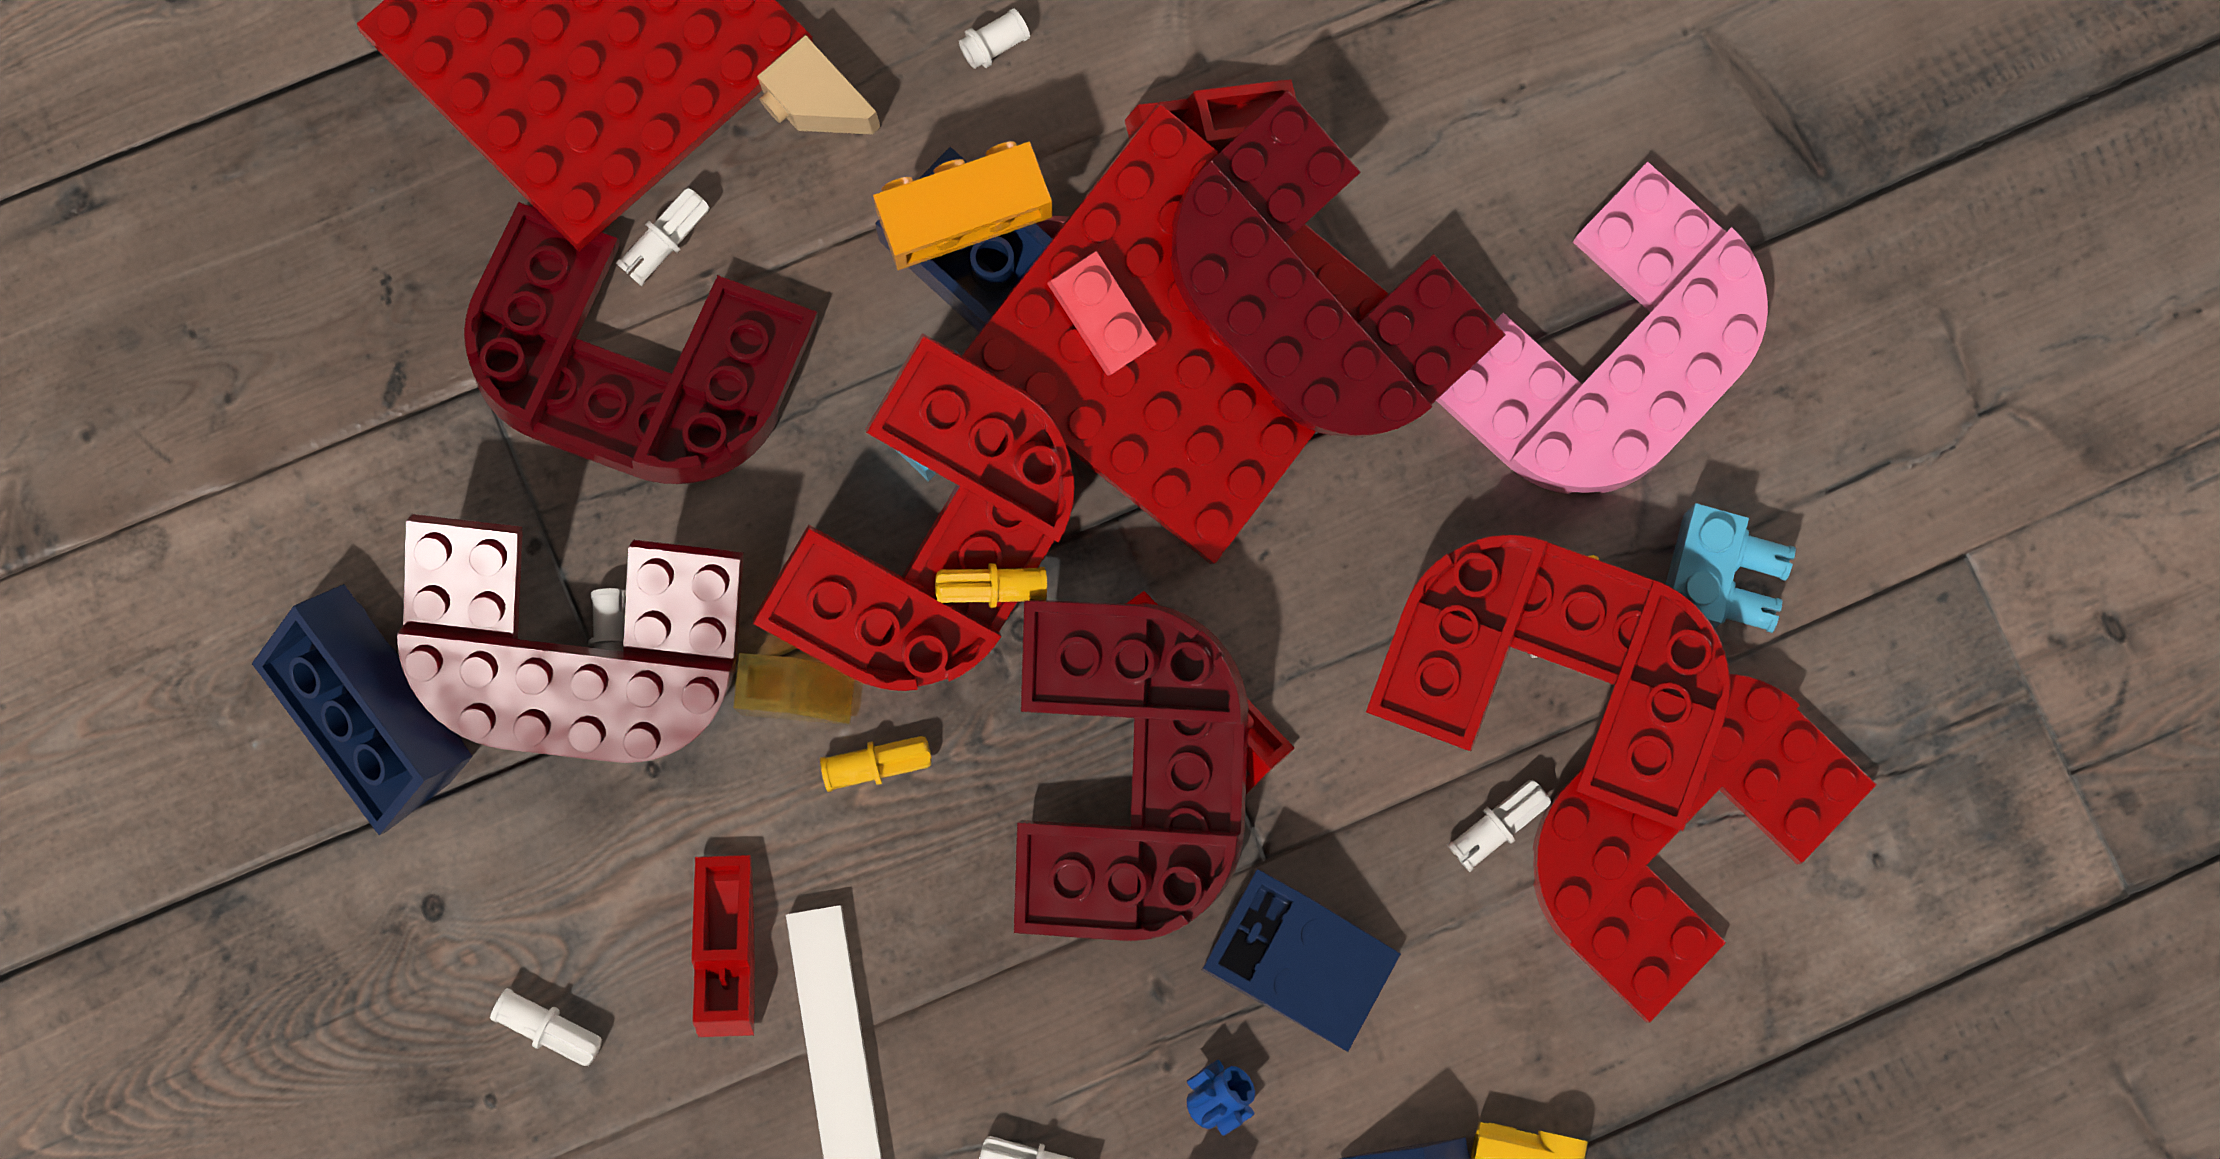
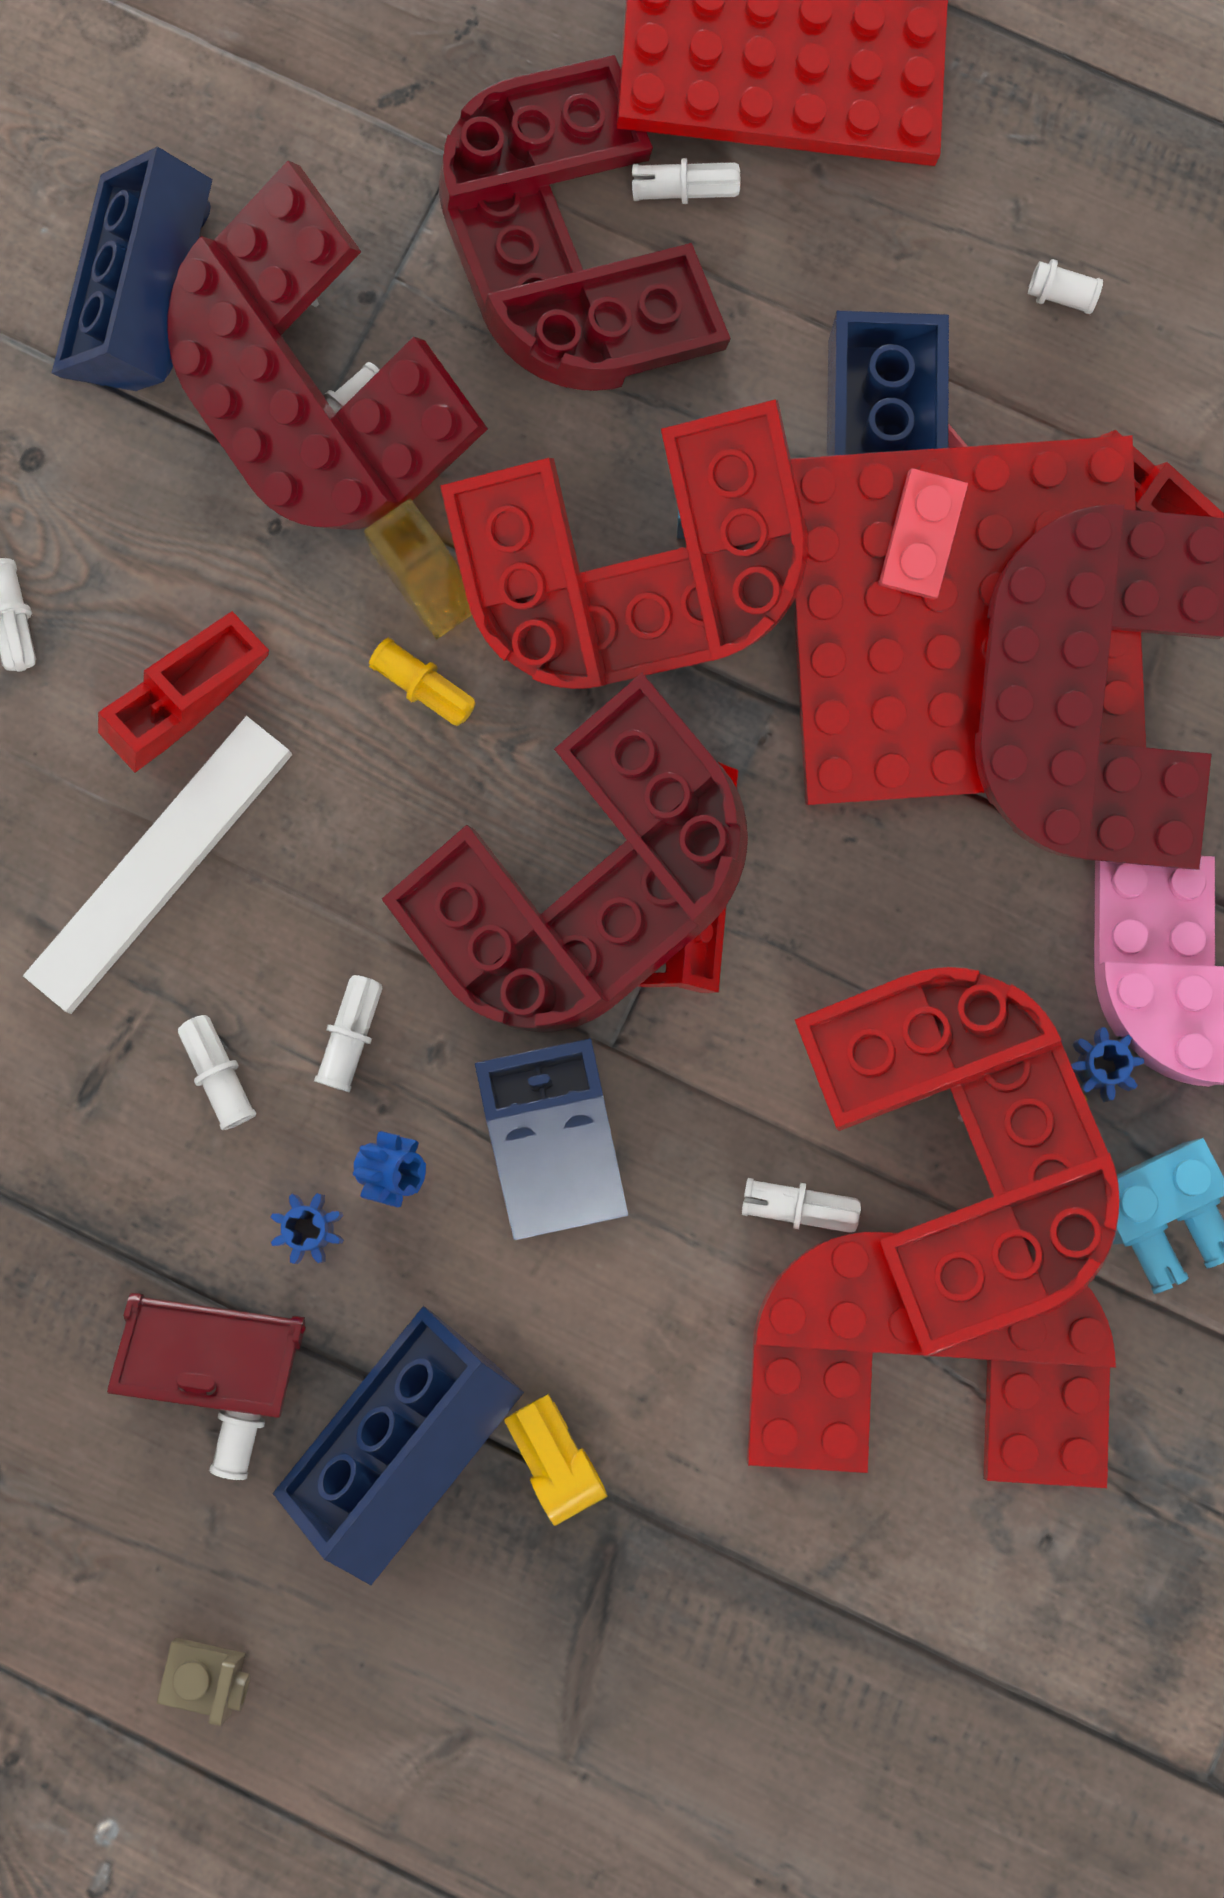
camera: 50 degrees right, 0 degrees up
(814, 93) = (896, 192): tan slope -> none
(962, 204) = (910, 356): light orange brick -> none
(991, 585) = (632, 640): yellow axle -> none
(1092, 1042) = (349, 1033): none -> white axle
(1570, 517) = (1111, 1051): none -> blue gear

